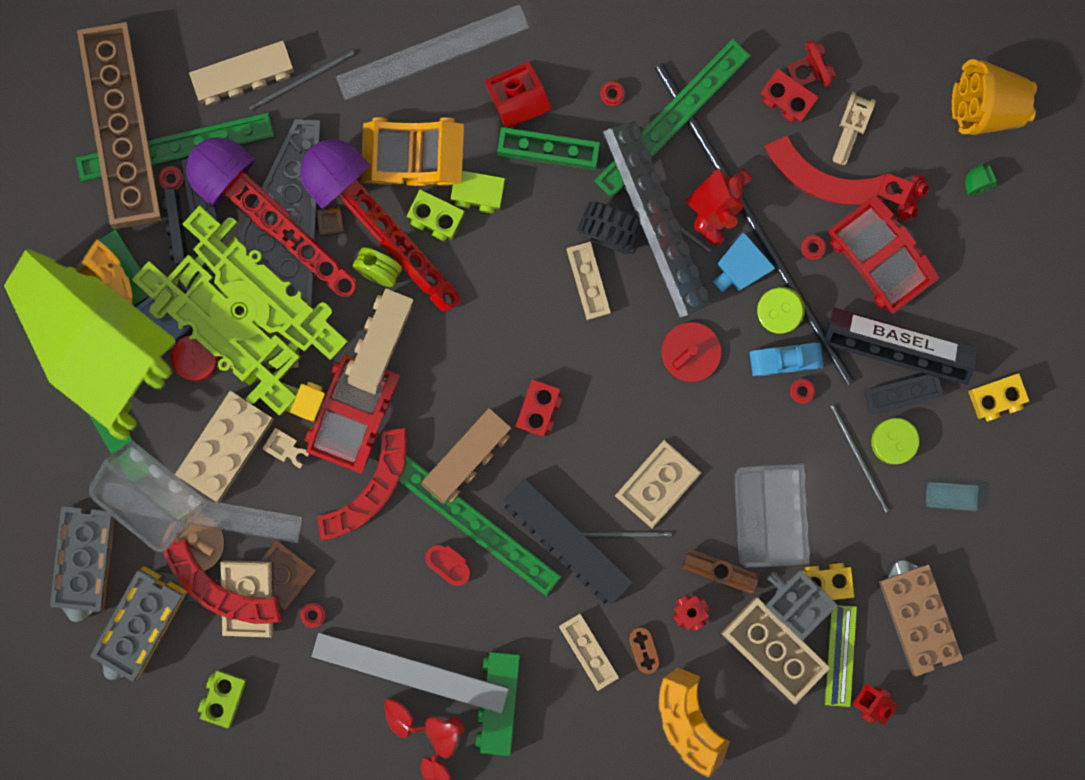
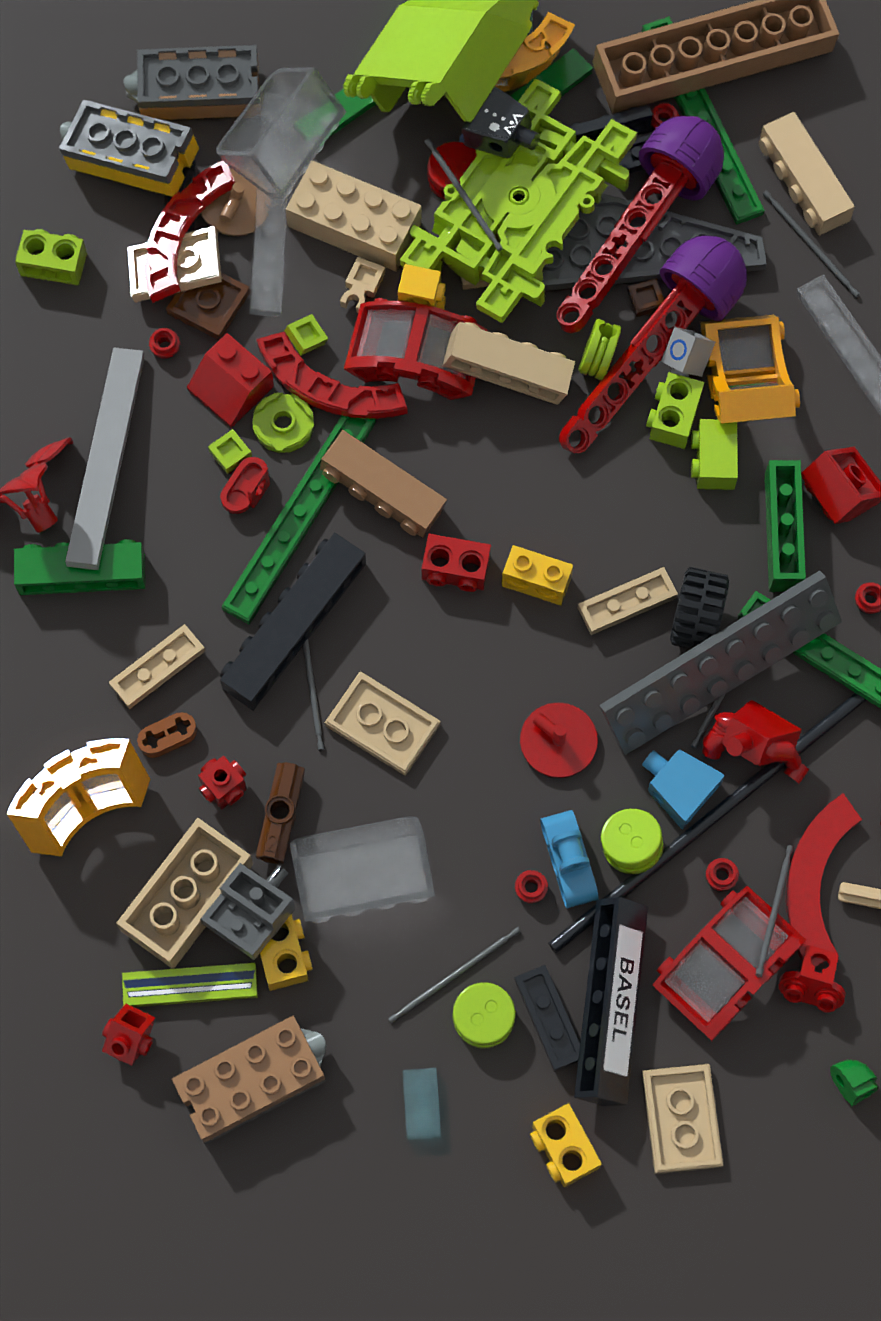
camera: 85 degrees right, 15 degrees down
(178, 314) = (500, 126): none -> torso
(230, 355) = (473, 209): none -> dark grey piece
(324, 499) = (306, 334): none -> lime plate
(356, 566) = (230, 380): none -> red slope
(392, 197) = (687, 352): none -> light grey brick
(410, 532) = (288, 438): none -> lime tile
(416, 573) = (229, 451): none -> lime plate
(559, 347) = (537, 575): none -> yellow brick
(851, 214) = (759, 972): none -> dark grey piece
(988, 309) = (682, 1118): none -> tan tile

